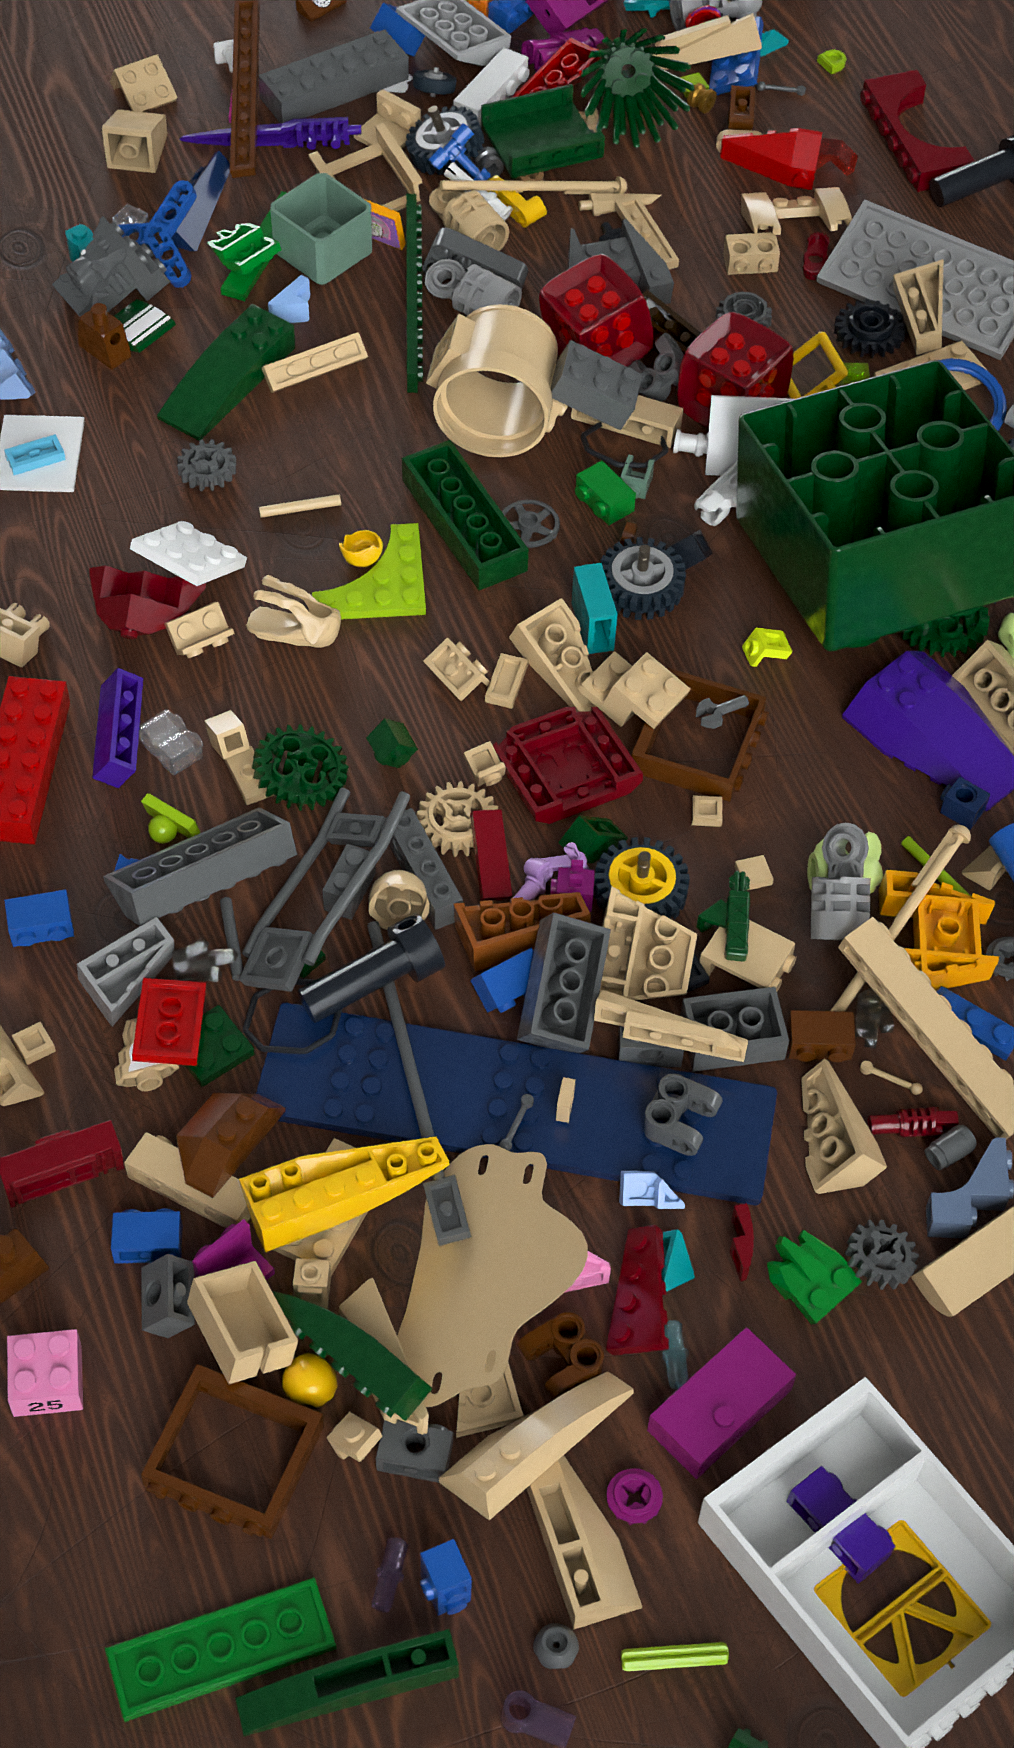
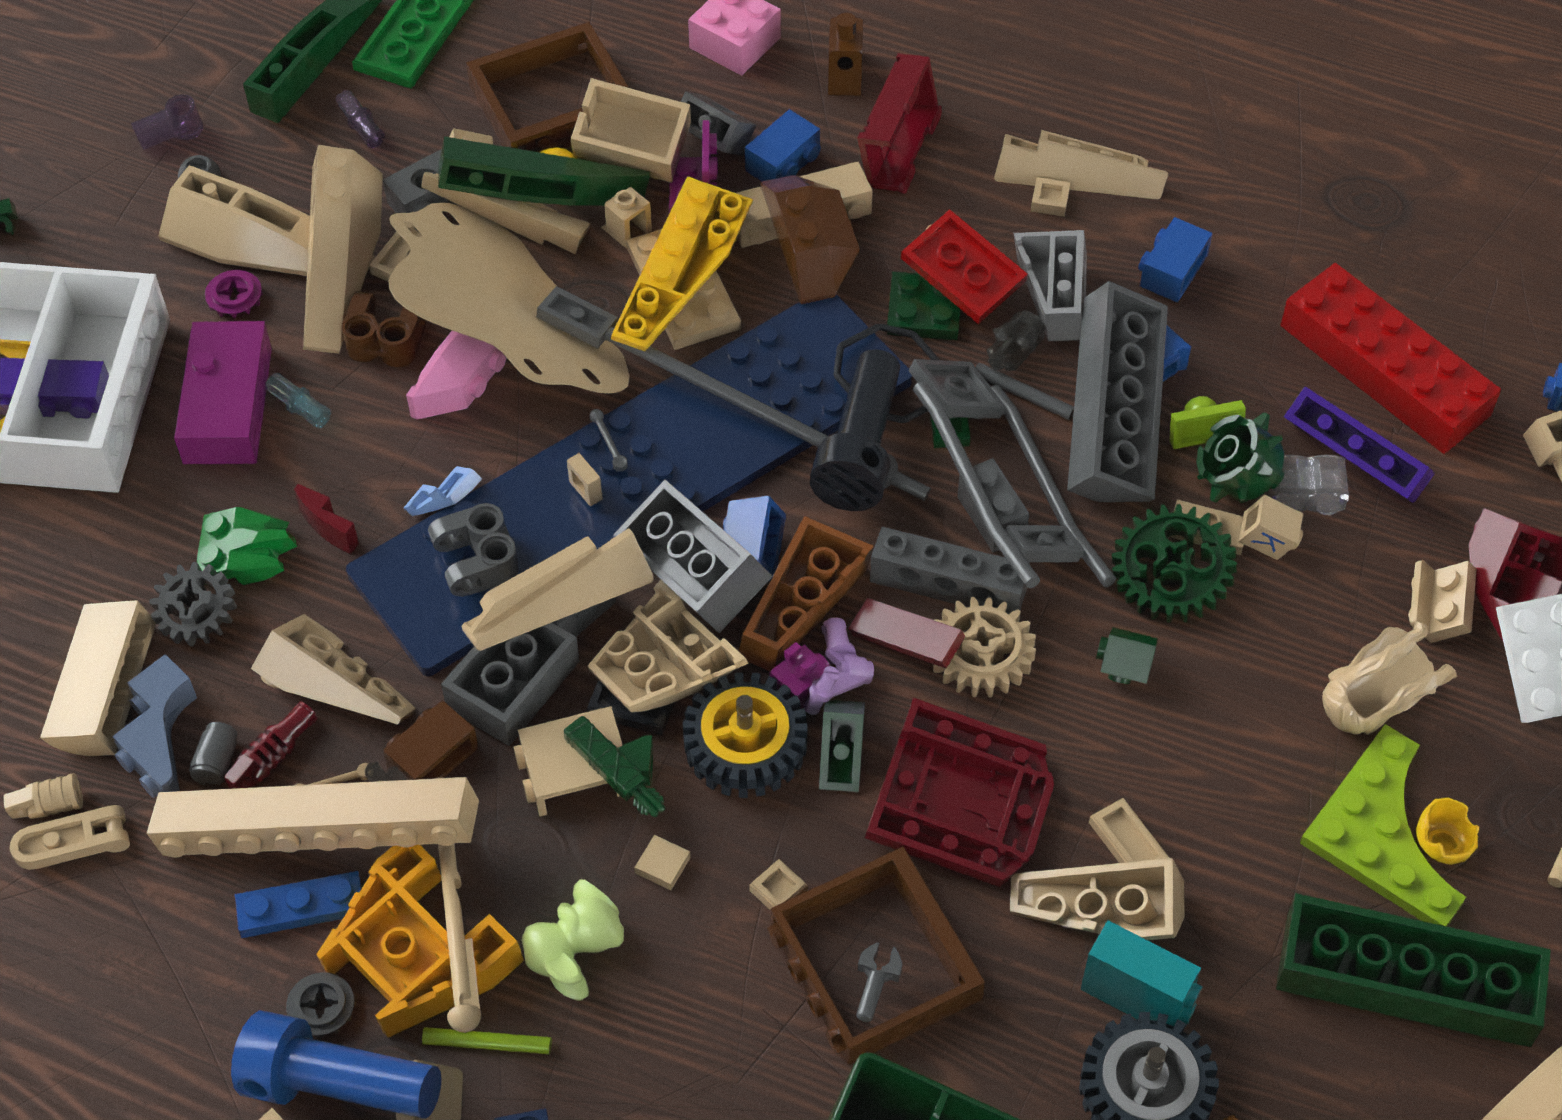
camera: 135 degrees right, 0 degrees up
(208, 775) = (1241, 458): none -> dark green brick
(396, 897) = (938, 518): tan cylinder -> none
(445, 1578) = (308, 122): blue brick -> none
(455, 669) = (1183, 800): tan bracket -> none
(485, 764) = (1027, 720): tan bracket -> none
(530, 522) = (1353, 1054): dark grey wheel -> none
(636, 689) = (986, 923): tan bracket -> none
(638, 1305) = (369, 409): dark red wing -> none
(674, 1656) = (105, 231): lime axle -> none
(676, 1260) = (371, 454): teal slope -> none
(843, 898) = (533, 869): light grey cylinder -> none

